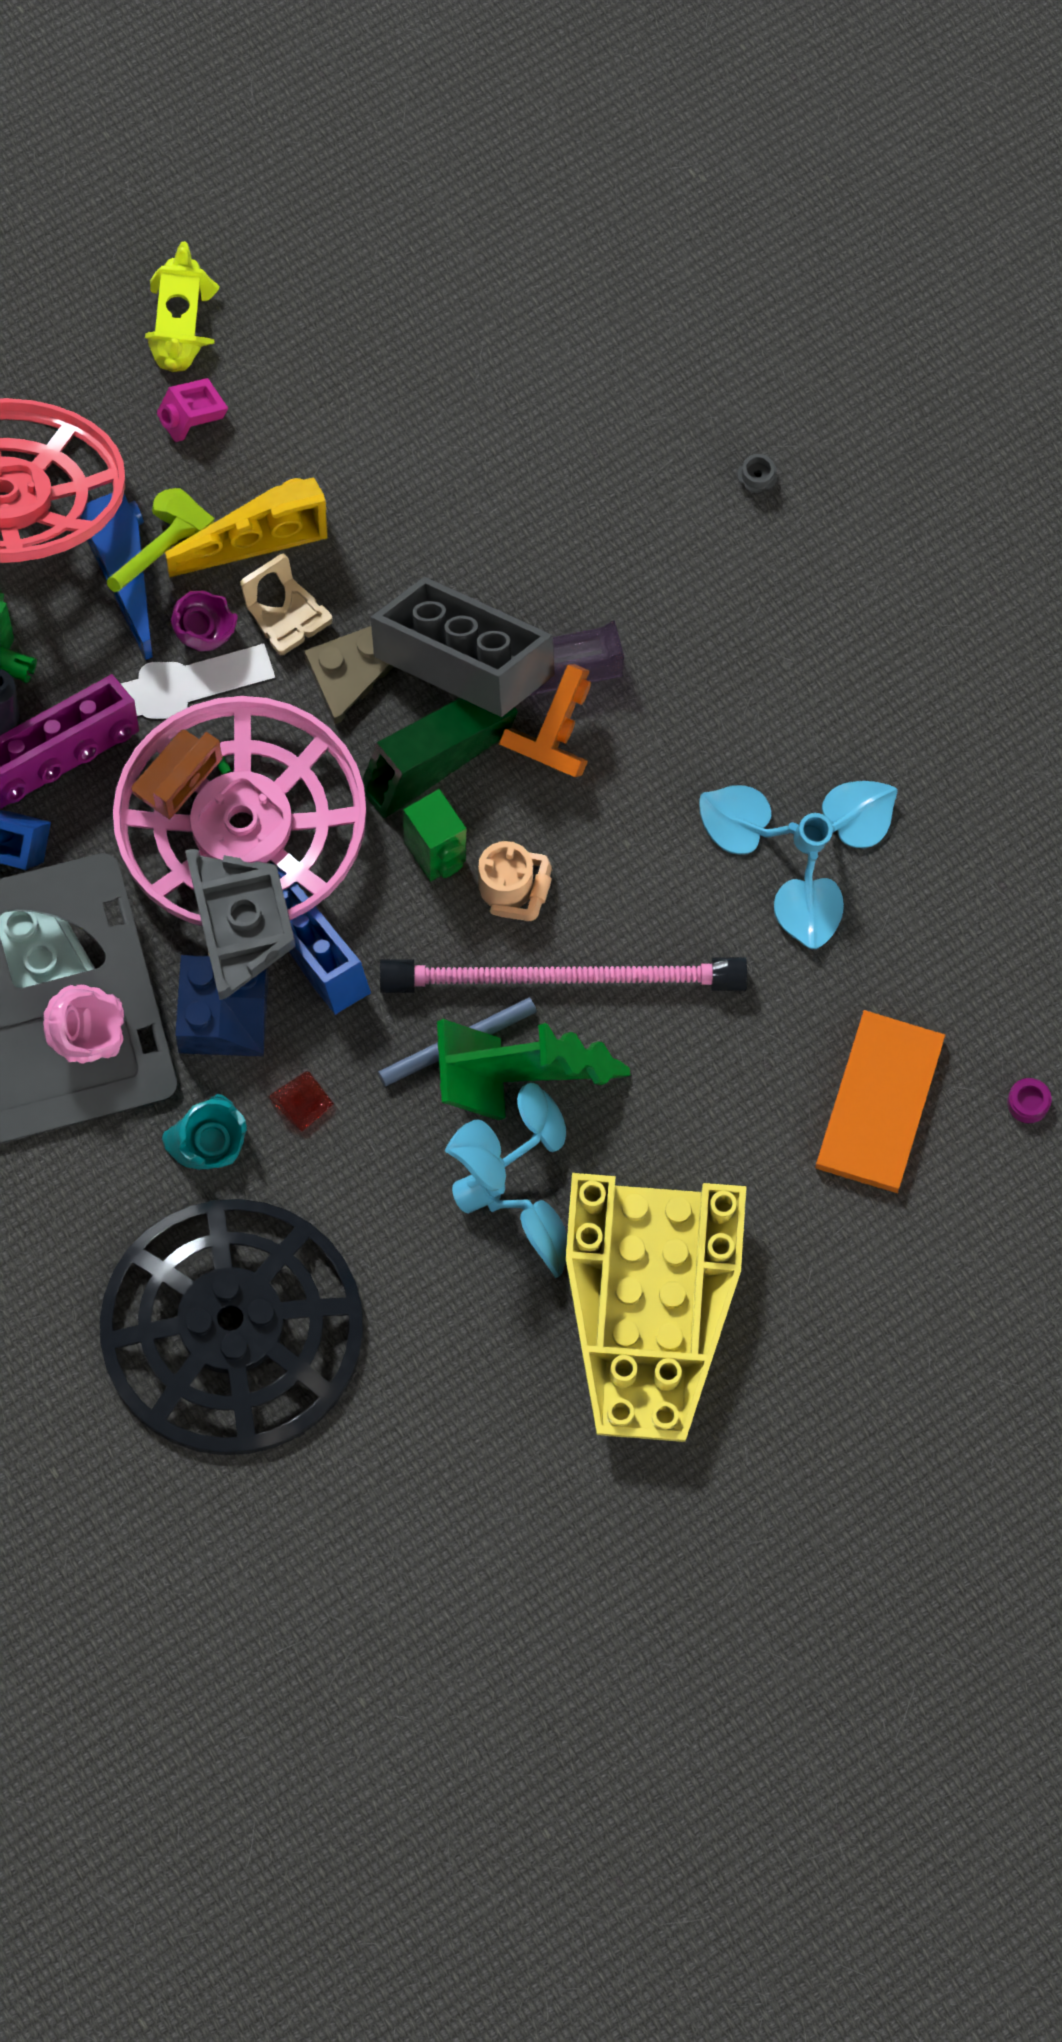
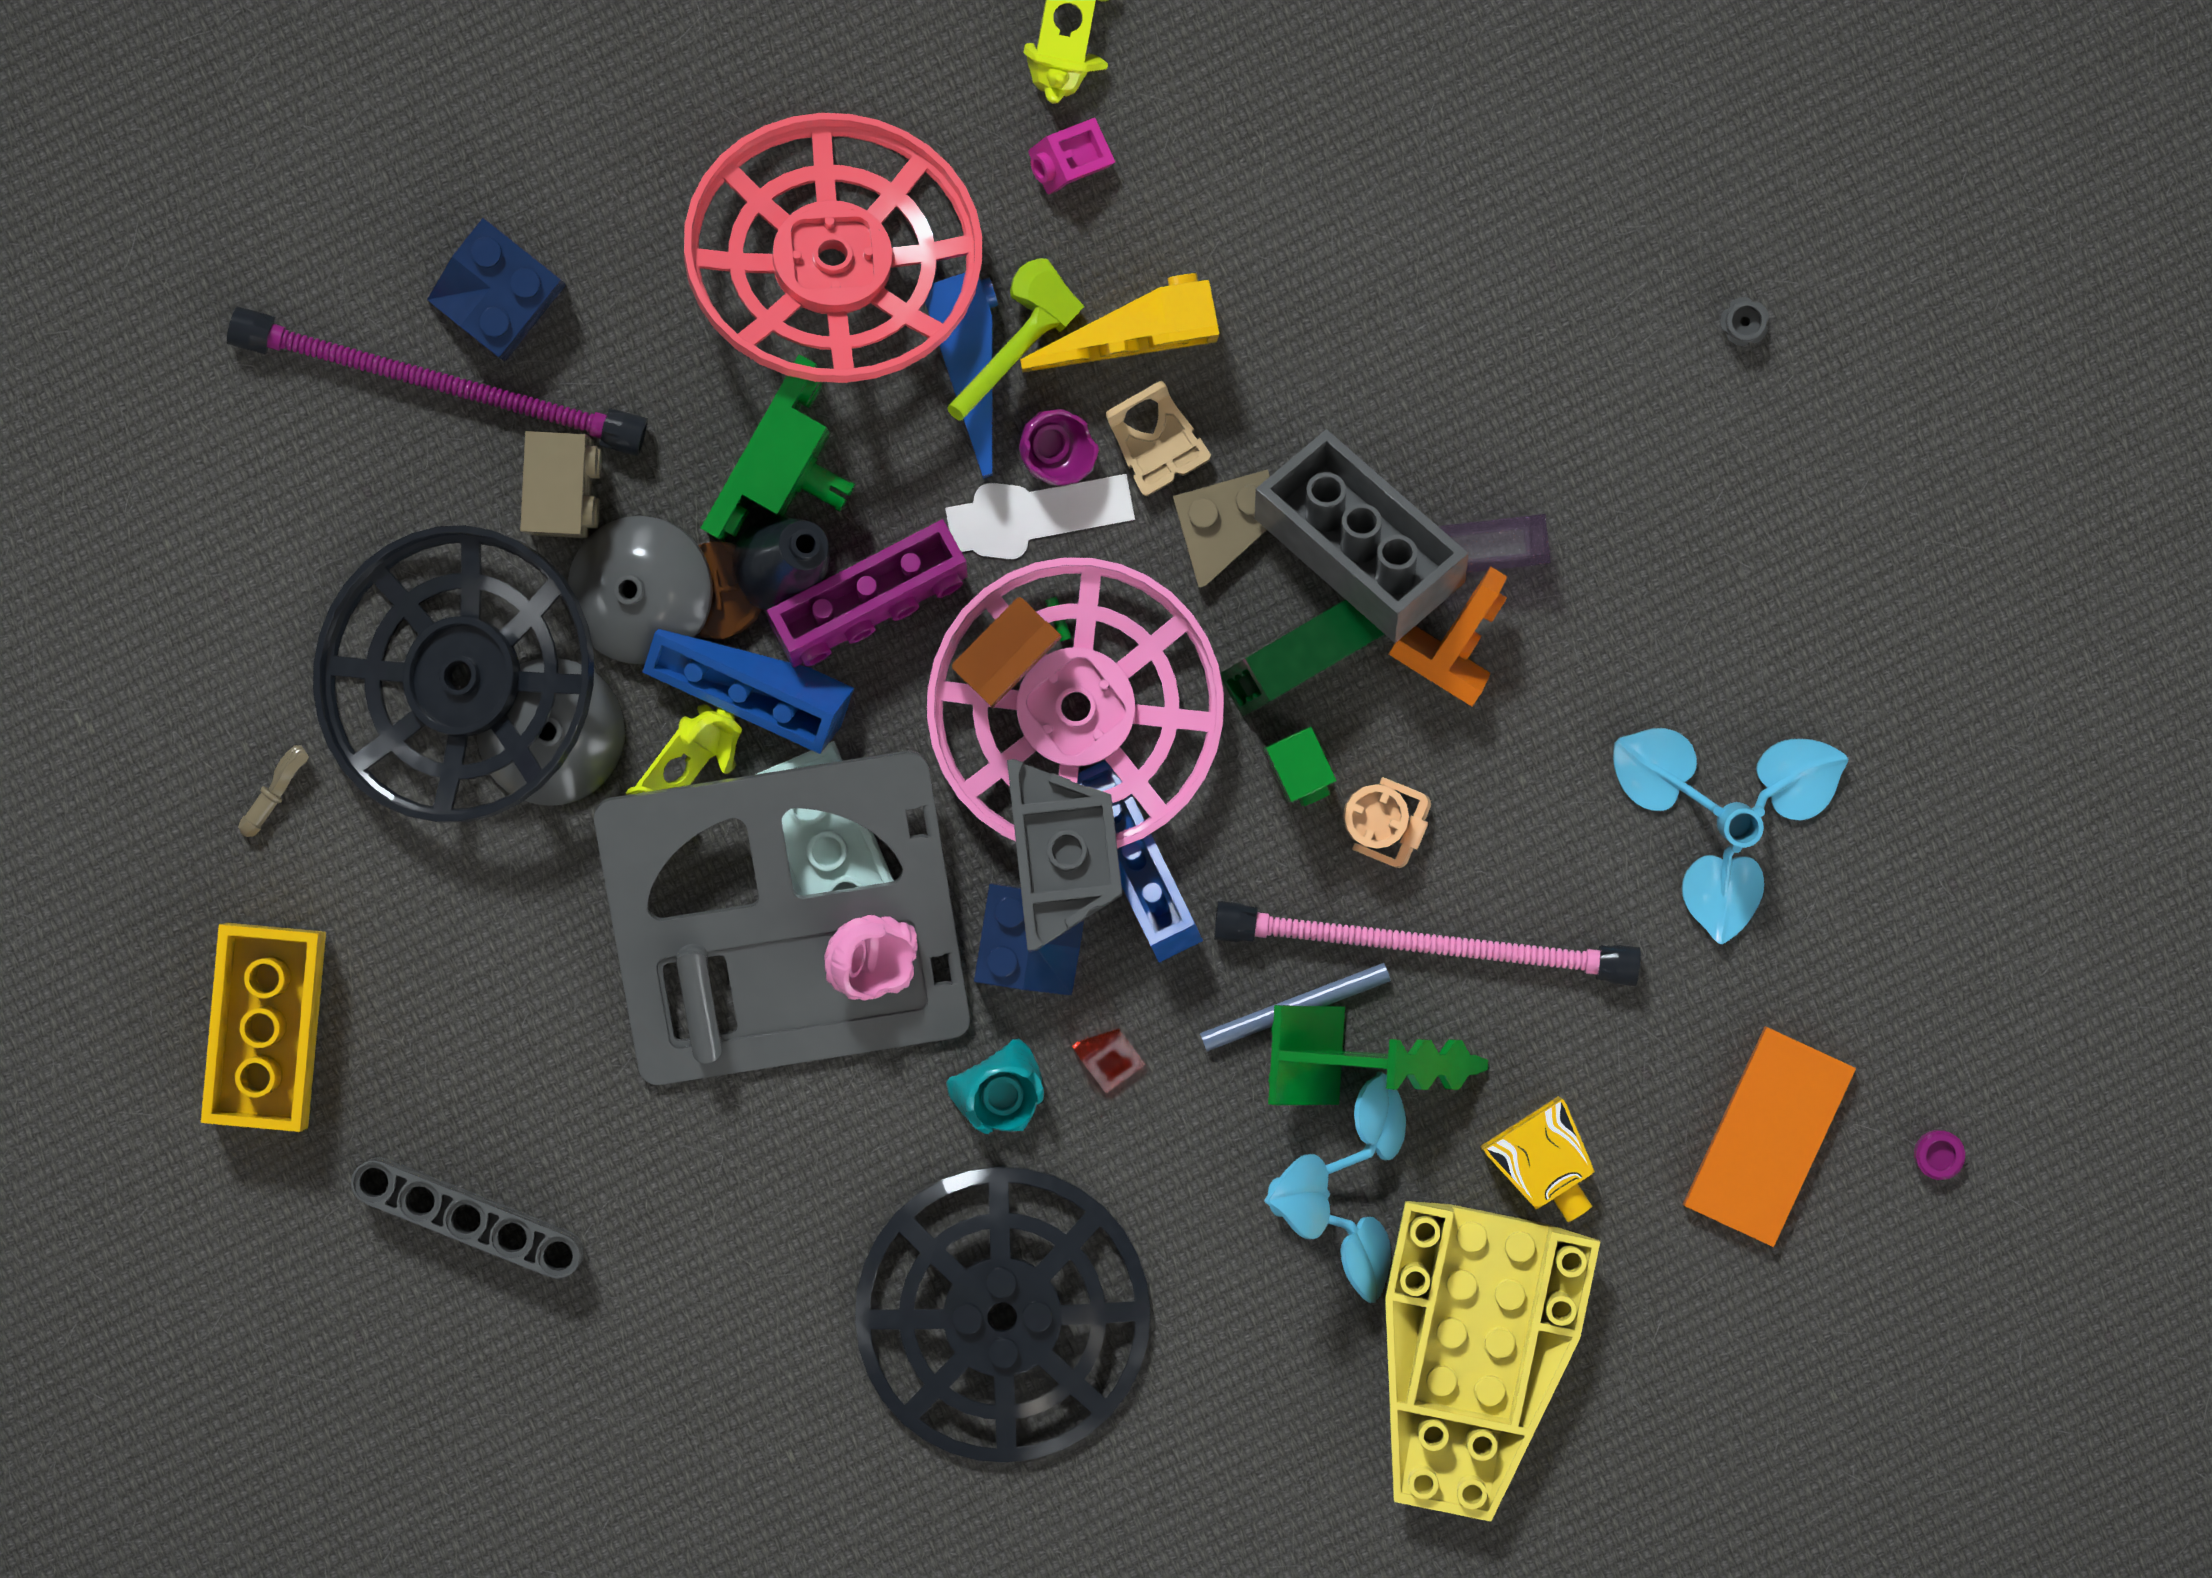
camera: 15 degrees right, 20 degrees up
(688, 1136) = (1545, 1159): none -> yellow torso

